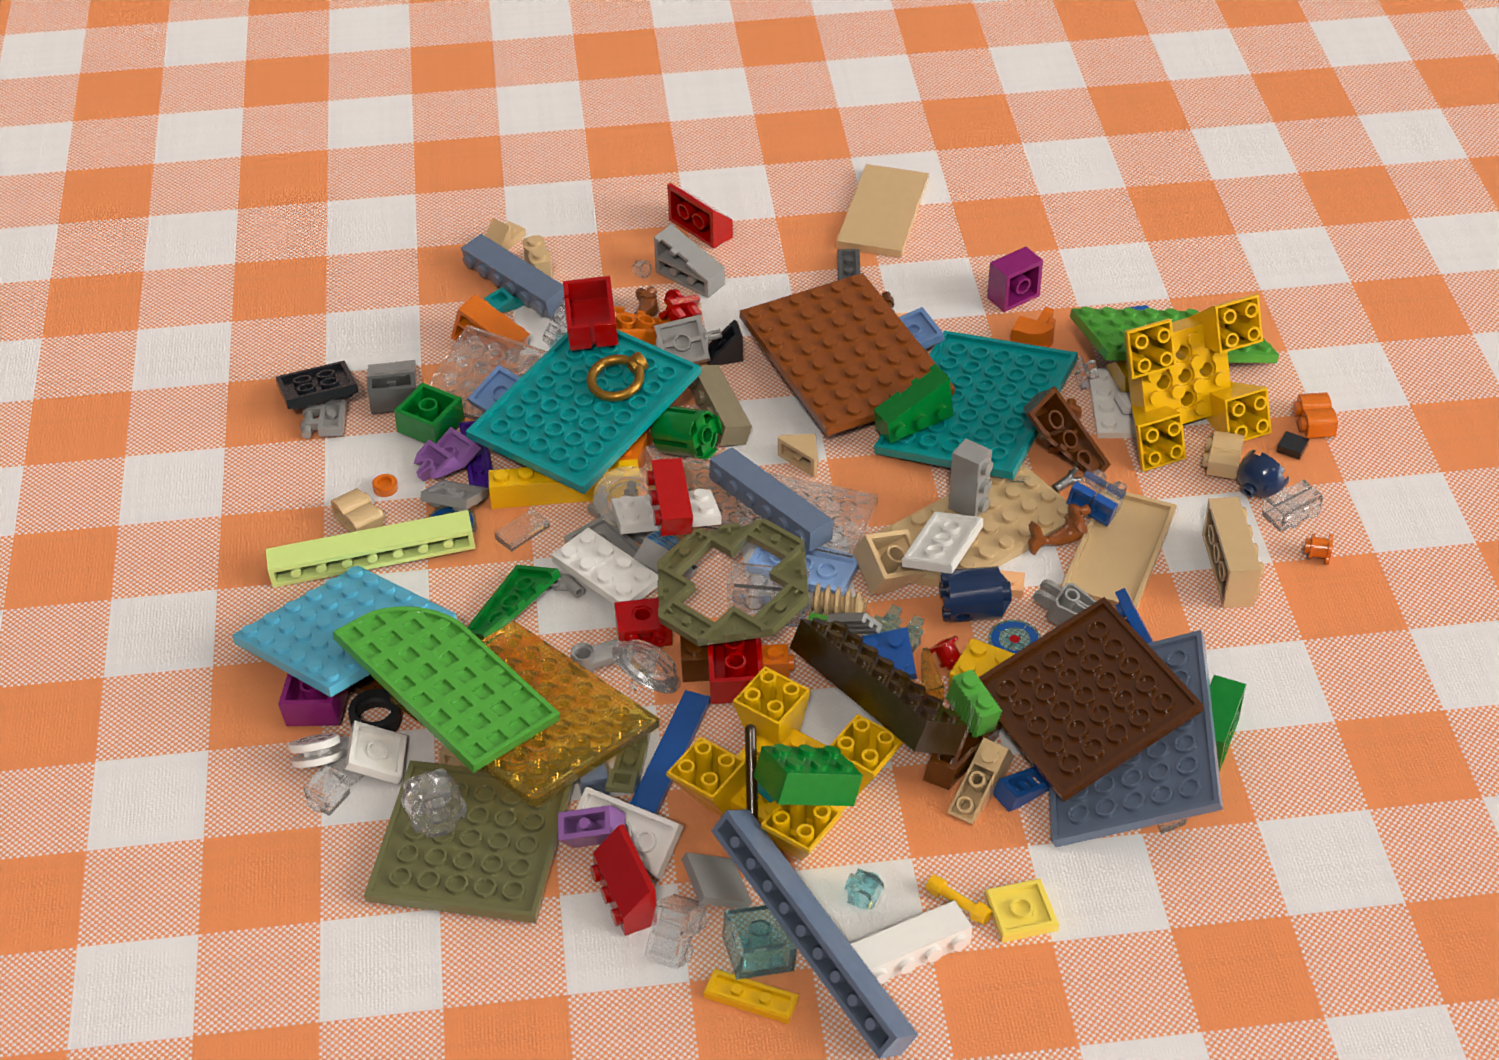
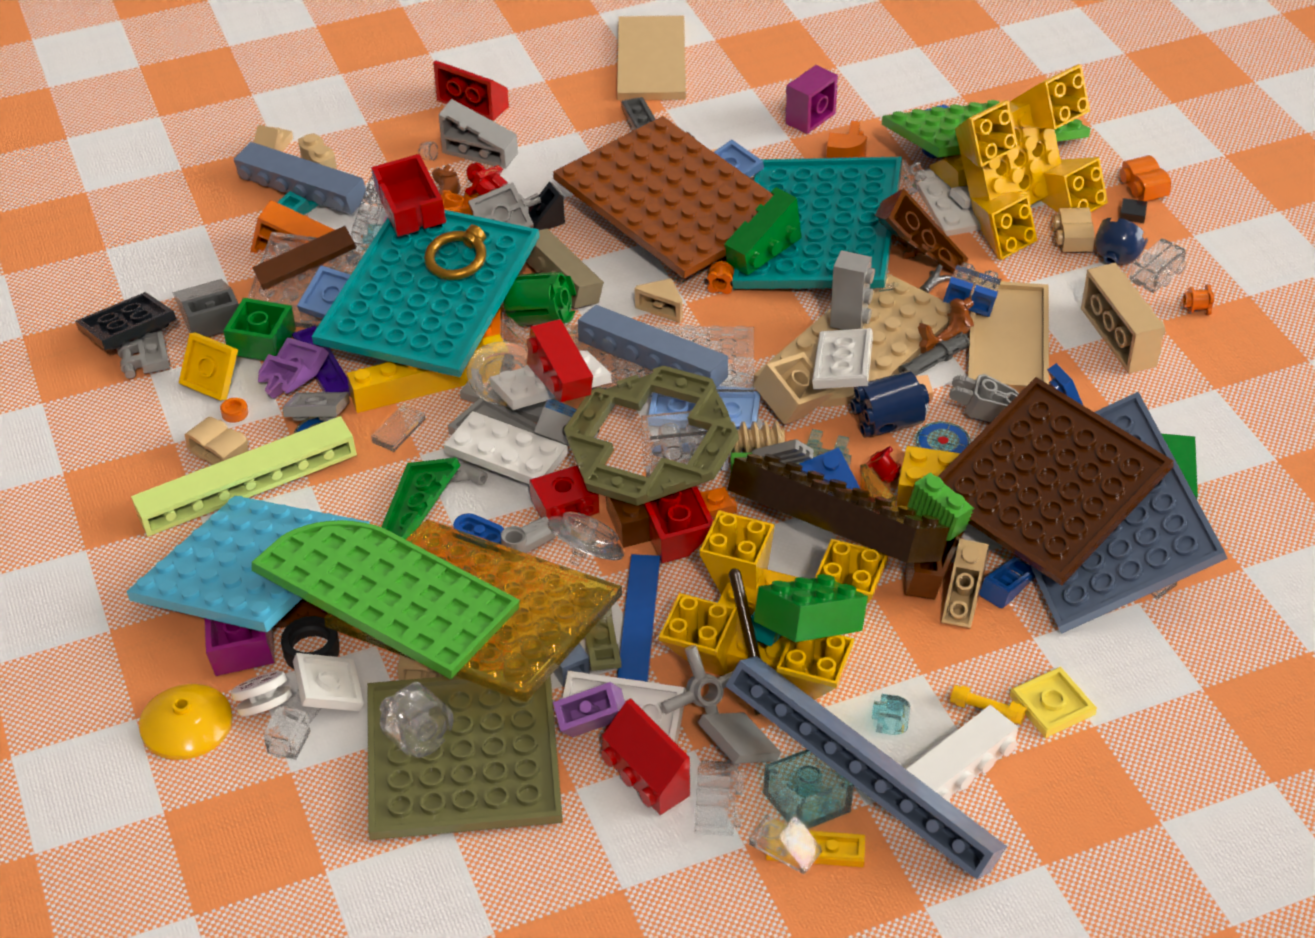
camera: 15 degrees left, 0 degrees up
(248, 761) = (185, 721): none -> yellow dish
(372, 441) = (208, 366): none -> yellow tile
(487, 354) = (304, 257): none -> reddish brown tile
(557, 637) = (479, 527): none -> blue plate
(699, 842) = (695, 684): none -> light grey bar
(722, 986) = (786, 843): none -> clear slope
(864, 440) = (720, 277): none -> orange brick
(1032, 557) = (941, 352): none -> dark grey pin

